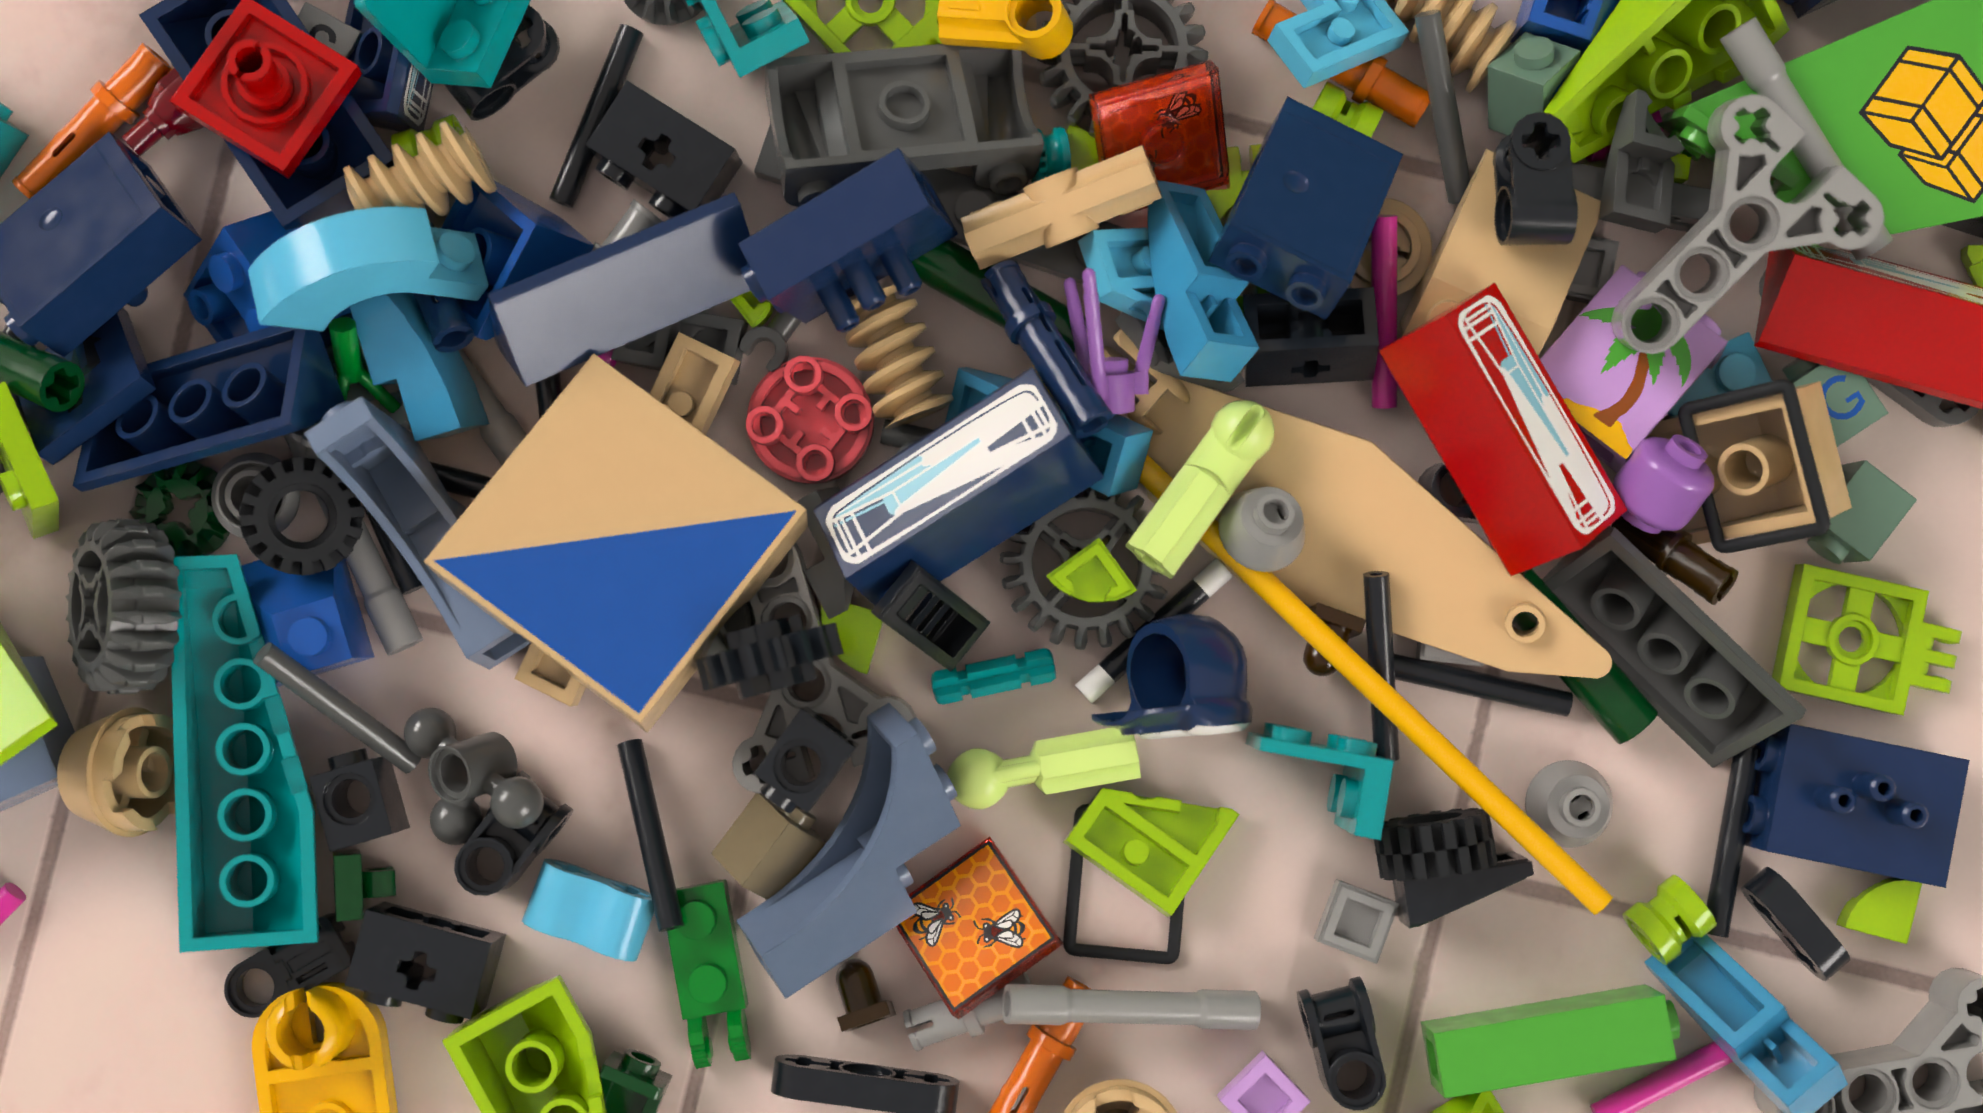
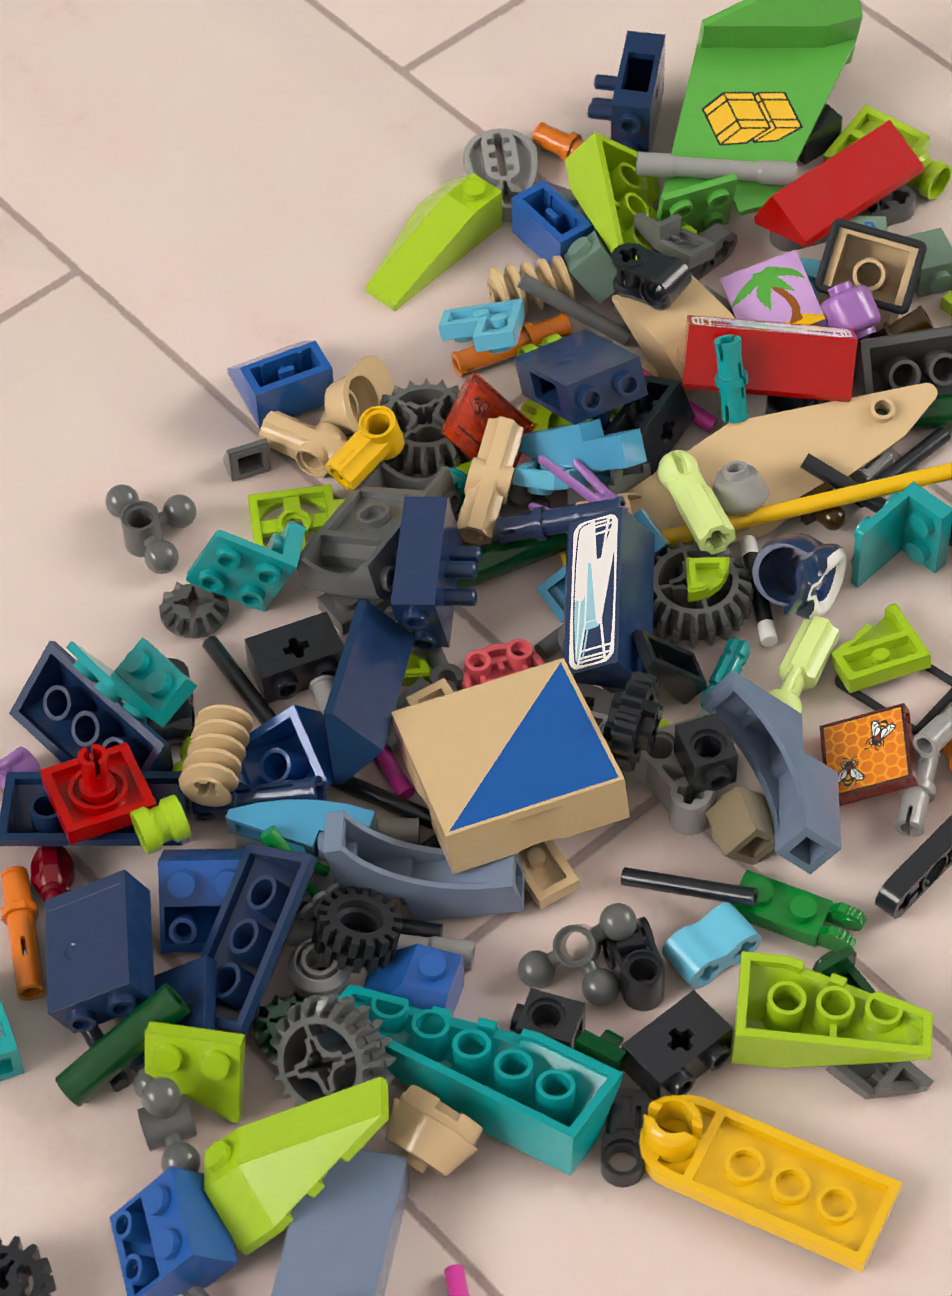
camera: 55 degrees left, 35 degrees down
(253, 193) = (160, 824): none -> lime wheel
(336, 706) = (477, 986): dark grey bar -> none
(359, 256) = (238, 793): medium azure arch -> none
(860, 996) = (871, 841): dark brown piece -> none
(896, 361) = (506, 614): tan piece -> none
(1418, 414) = (731, 378): none -> teal pin
(1741, 178) = (762, 165): light grey beam -> none

